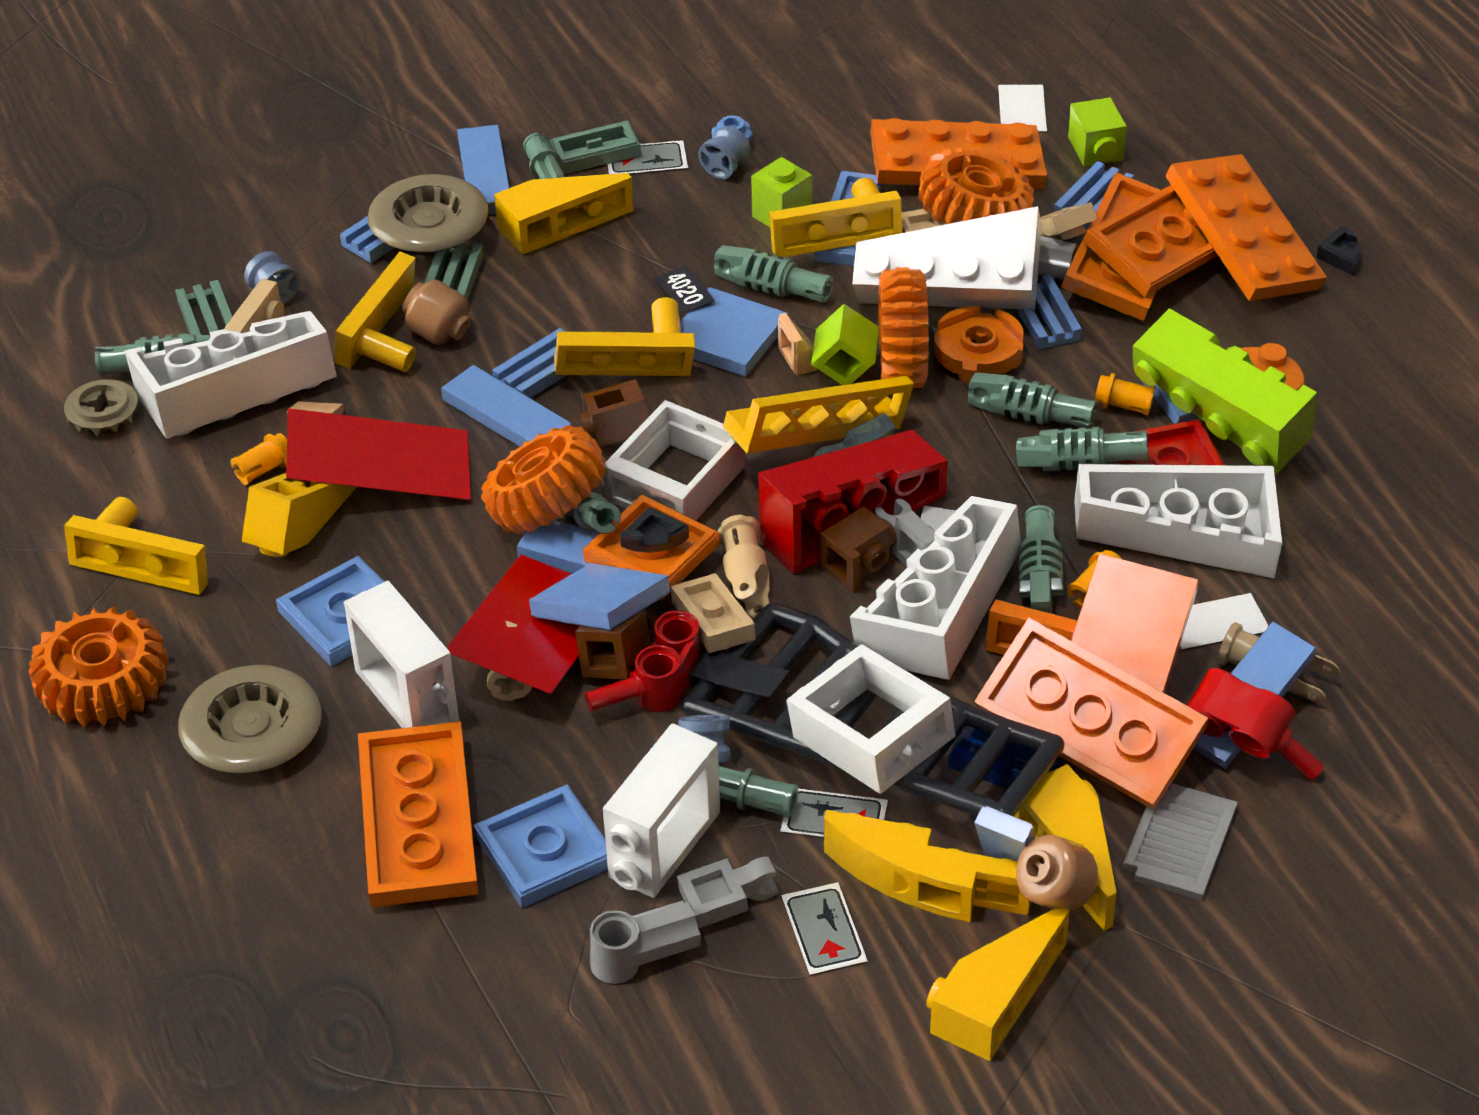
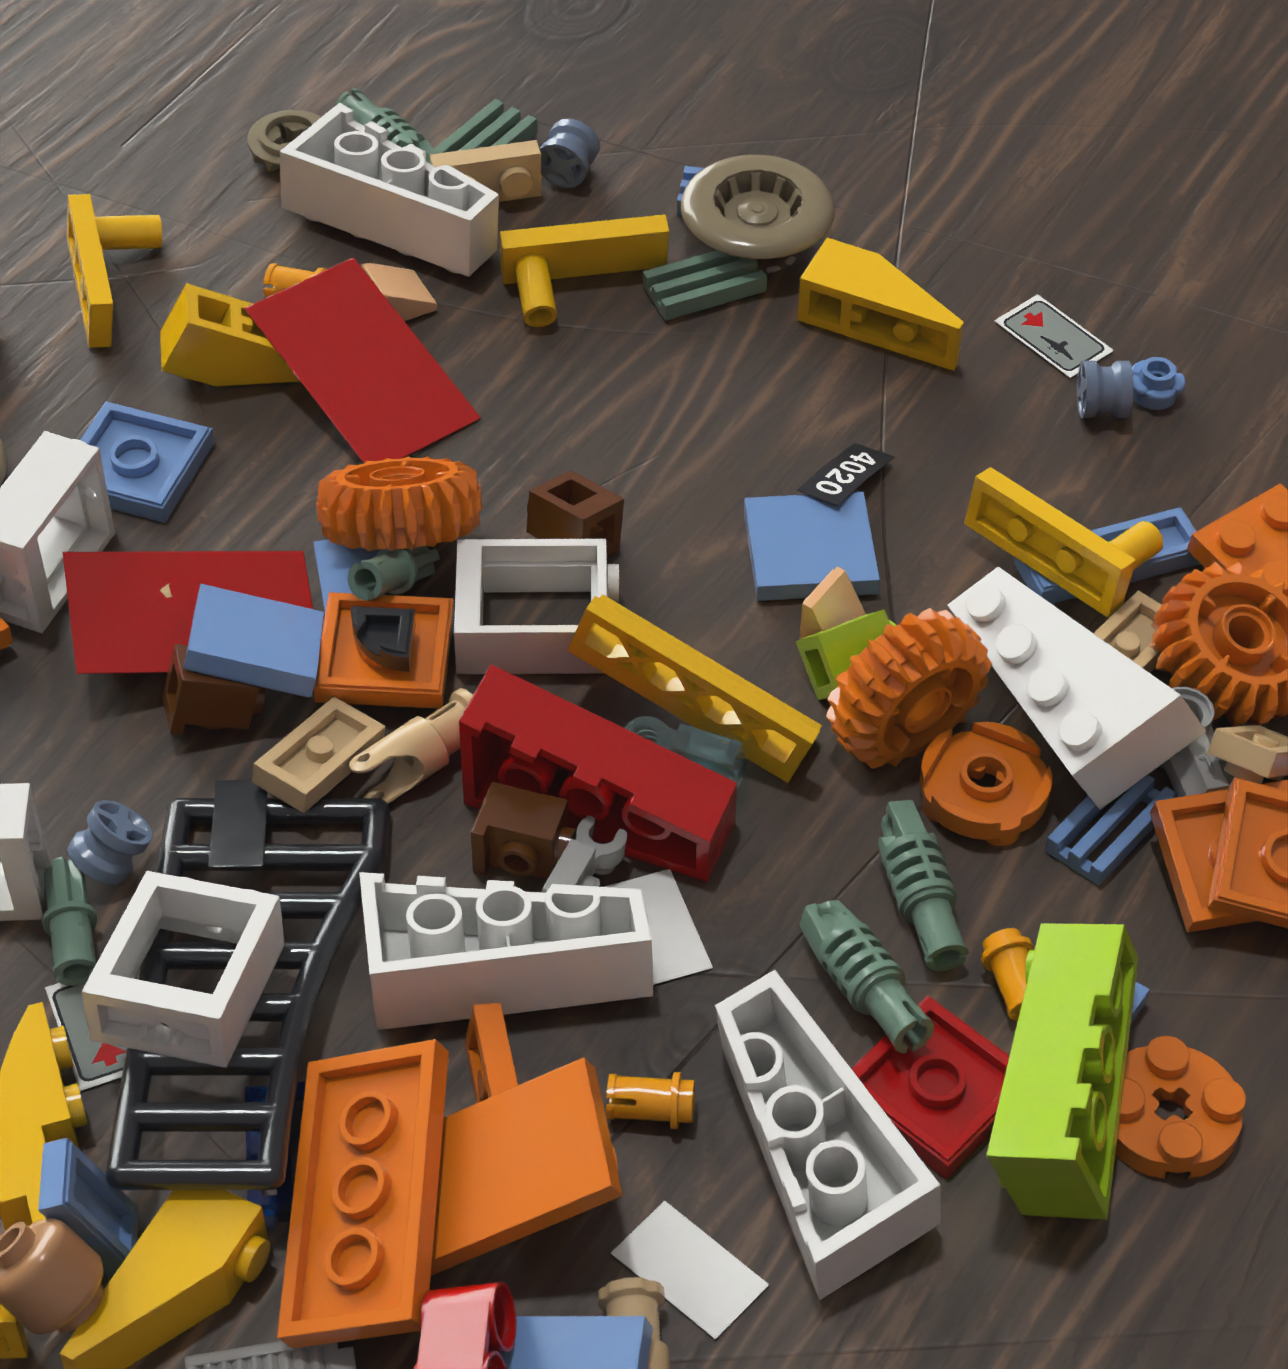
camera: 55 degrees right, 5 degrees up
(436, 312) = (619, 294): medium nougat head -> none
(483, 161) = (905, 213): medium blue tile -> none
(499, 406) = (525, 430): medium blue tile -> none
(530, 362) = (622, 421): medium blue tile -> none
(543, 160) = (946, 256): sand green axle -> none
(596, 147) = (1020, 284): sand green tile -> none
(629, 353) = (705, 505): yellow piece -> none
(659, 669) = (193, 755): red beam -> none
(770, 274) = (934, 533): sand green hinge -> none
(779, 188) = (1072, 470): lime brick -> none
(1040, 560) = (637, 1024): sand green hinge -> none

